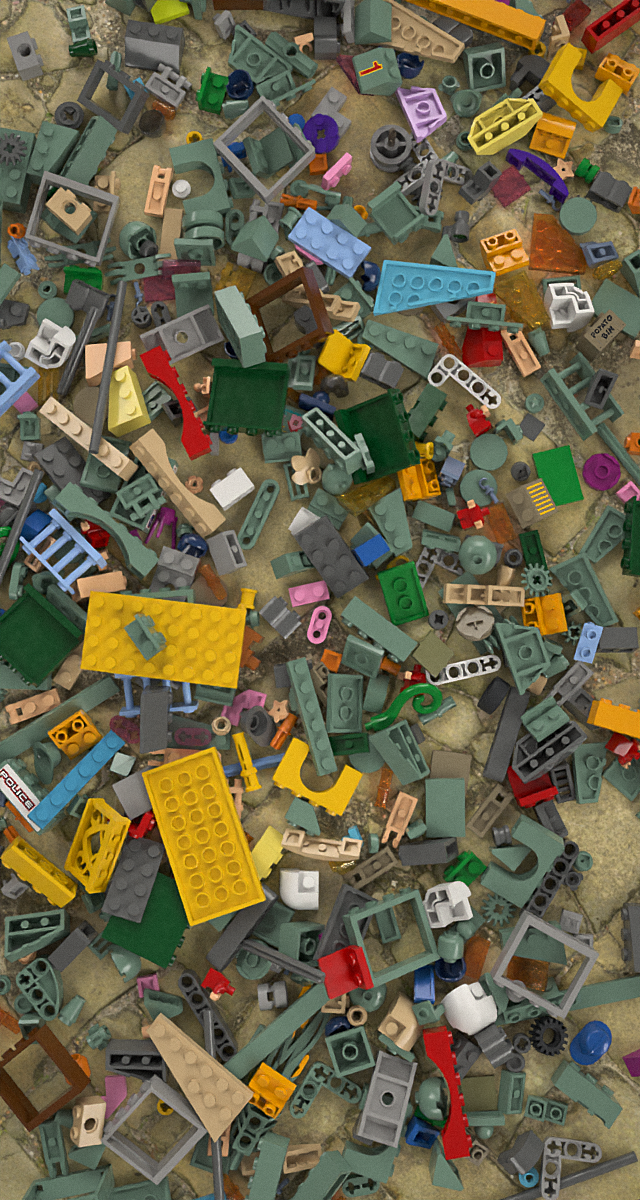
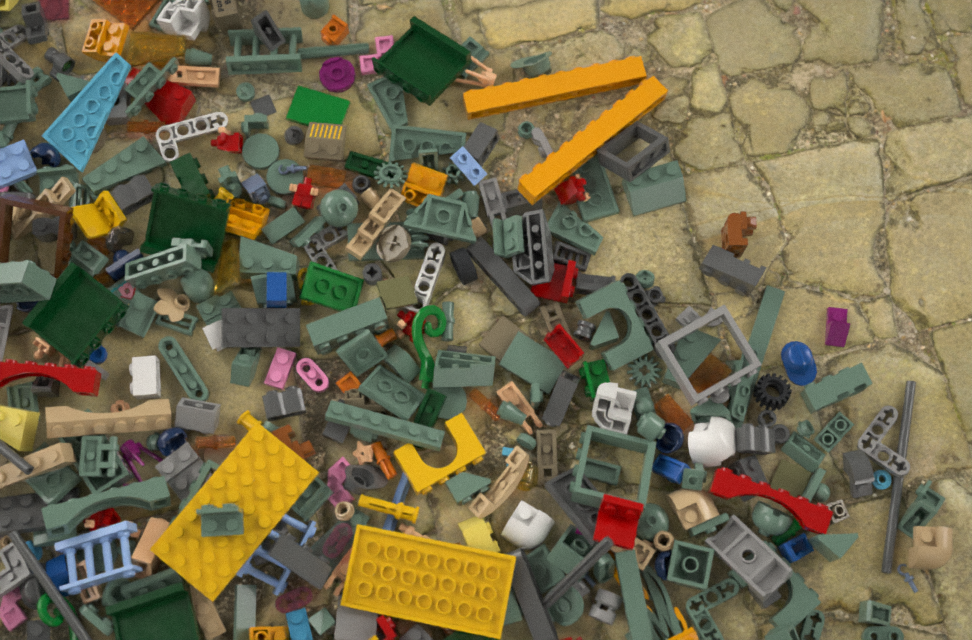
camera: 65 degrees left, 10 degrees down
(388, 816) = (511, 413): none -> sand green cone
(475, 827) = (563, 346): none -> red hinge
(533, 1083) = (805, 429): none -> sand green plate

